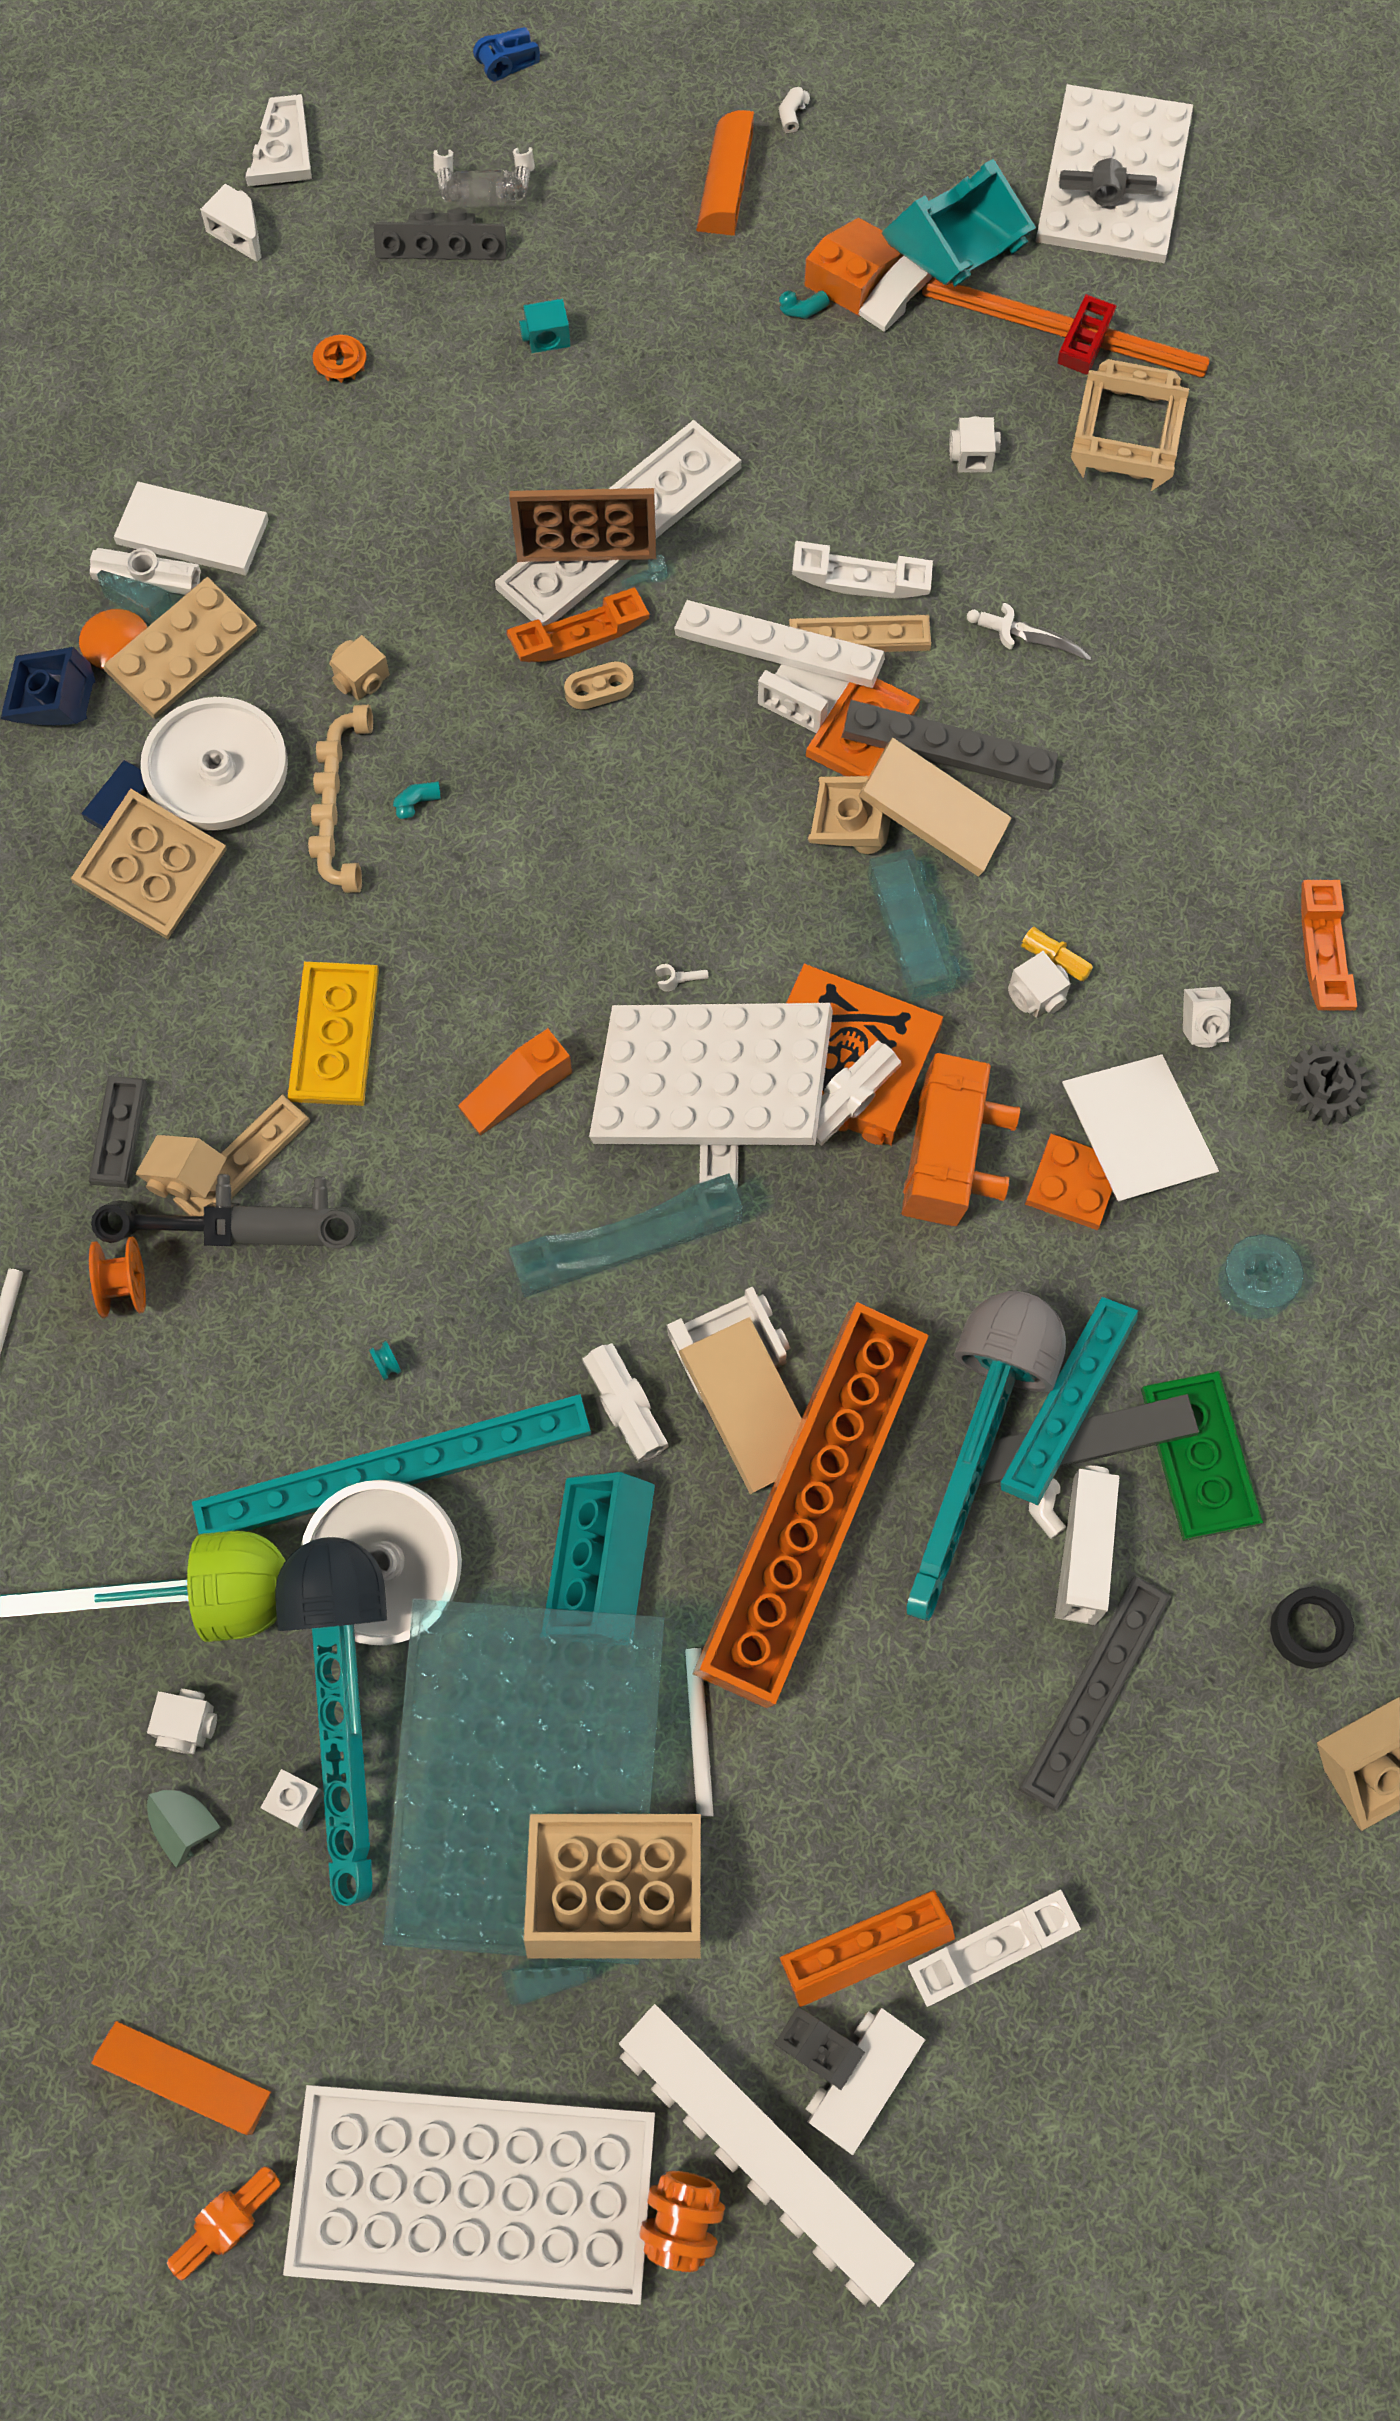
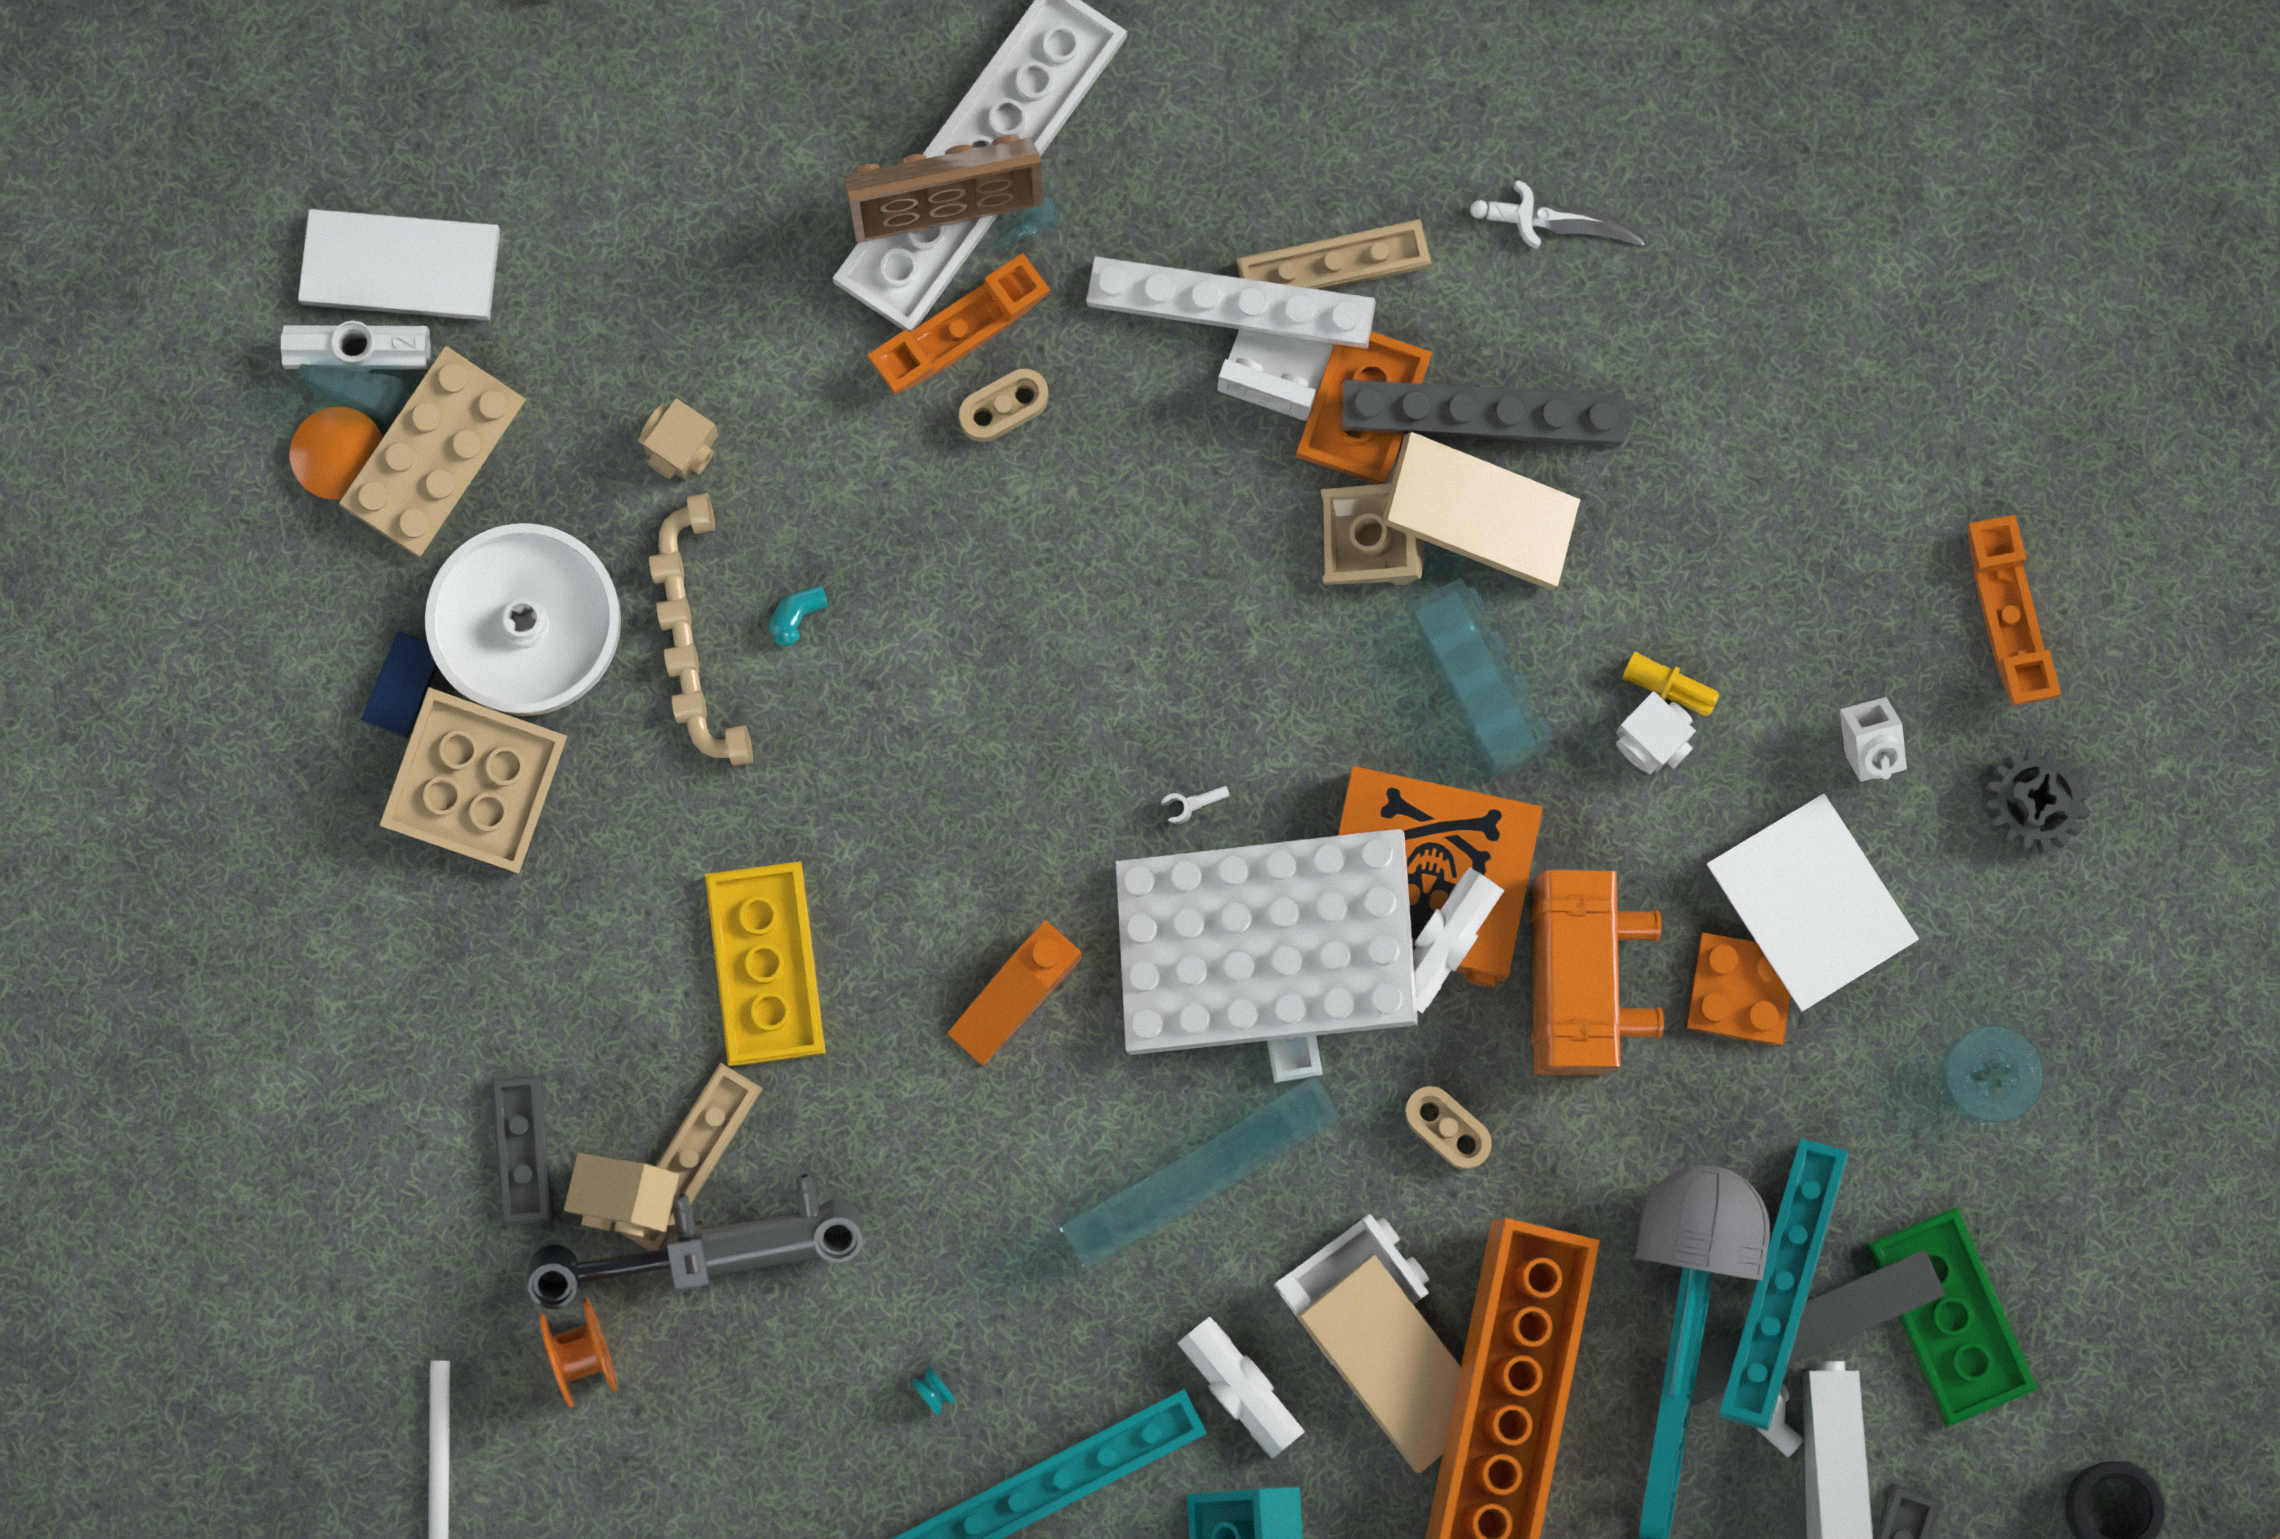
camera: 15 degrees left, 10 degrees up
(49, 688) = (269, 549): dark blue slope -> none
(827, 1241) = (1450, 1125): none -> tan plate
(861, 576) = (1320, 175): white slope -> none

